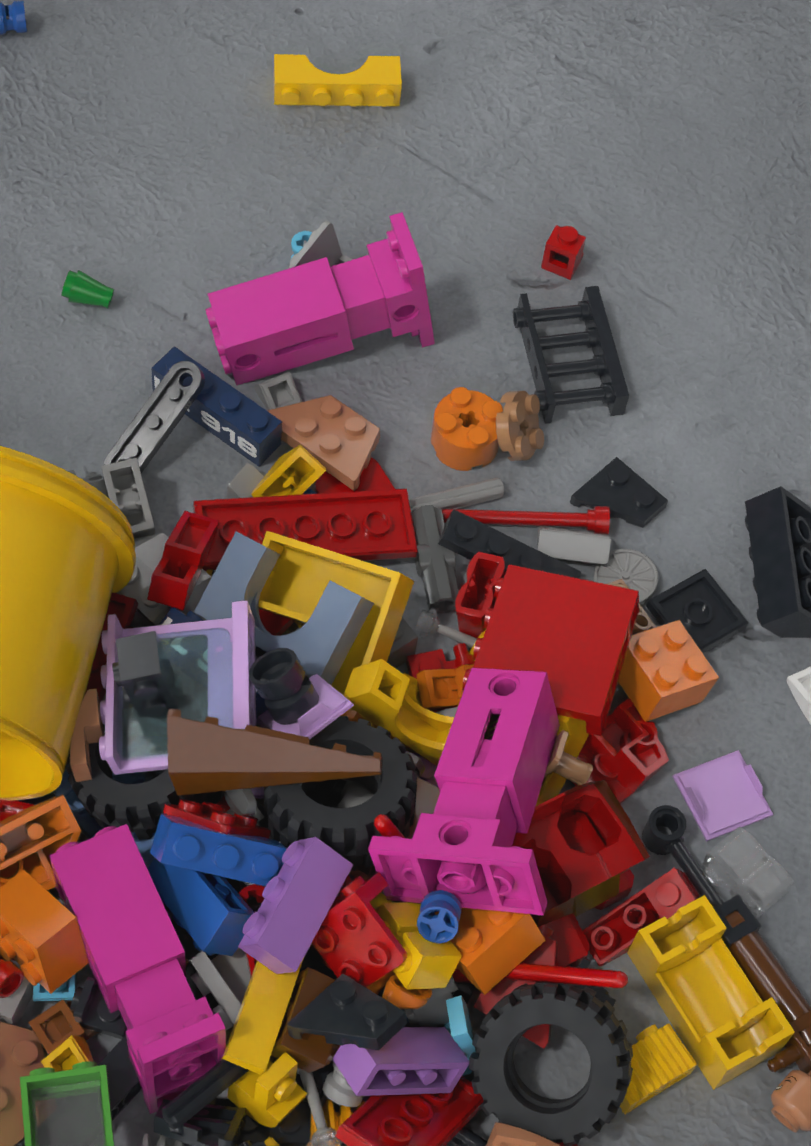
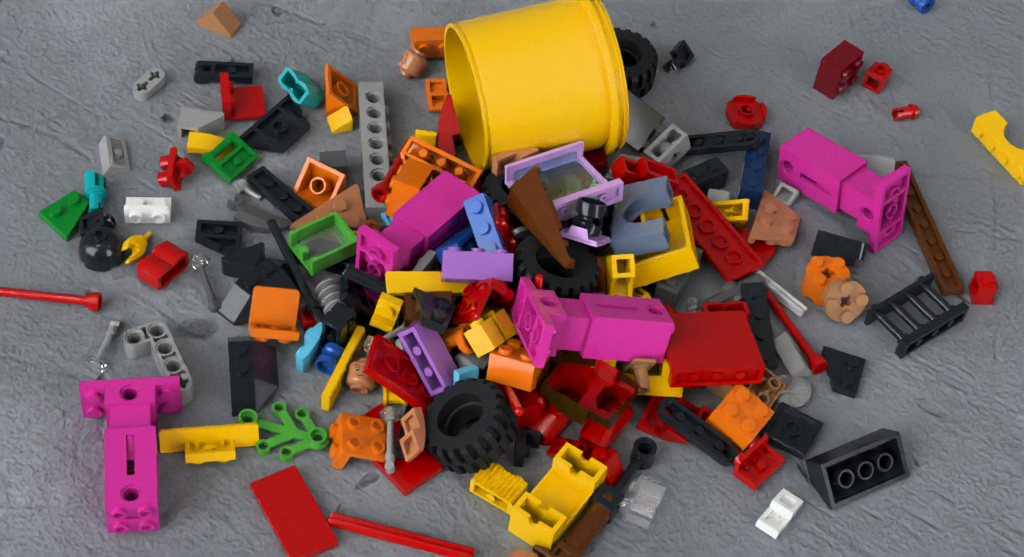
camera: 65 degrees right, 10 degrees down
(86, 290) = (781, 92): green cone -> none
(96, 192) = (838, 70): none -> dark red brick
(100, 372) = (739, 119): none -> red plate
(120, 147) = (879, 72): none -> red brick
(145, 674) = (557, 160): black brick -> none
(200, 472) = (709, 175): none -> black brick
(207, 154) = (910, 111): none -> red pin
(419, 384) = (838, 246): none -> black hinge
(443, 261) = (930, 240): none -> reddish brown plate
(445, 924) = (508, 328): blue wheel -> none
(666, 738) = (697, 431): none -> black plate
(723, 795) = (688, 482): lavender piece -> none
(741, 689) = (757, 463): none -> red bracket

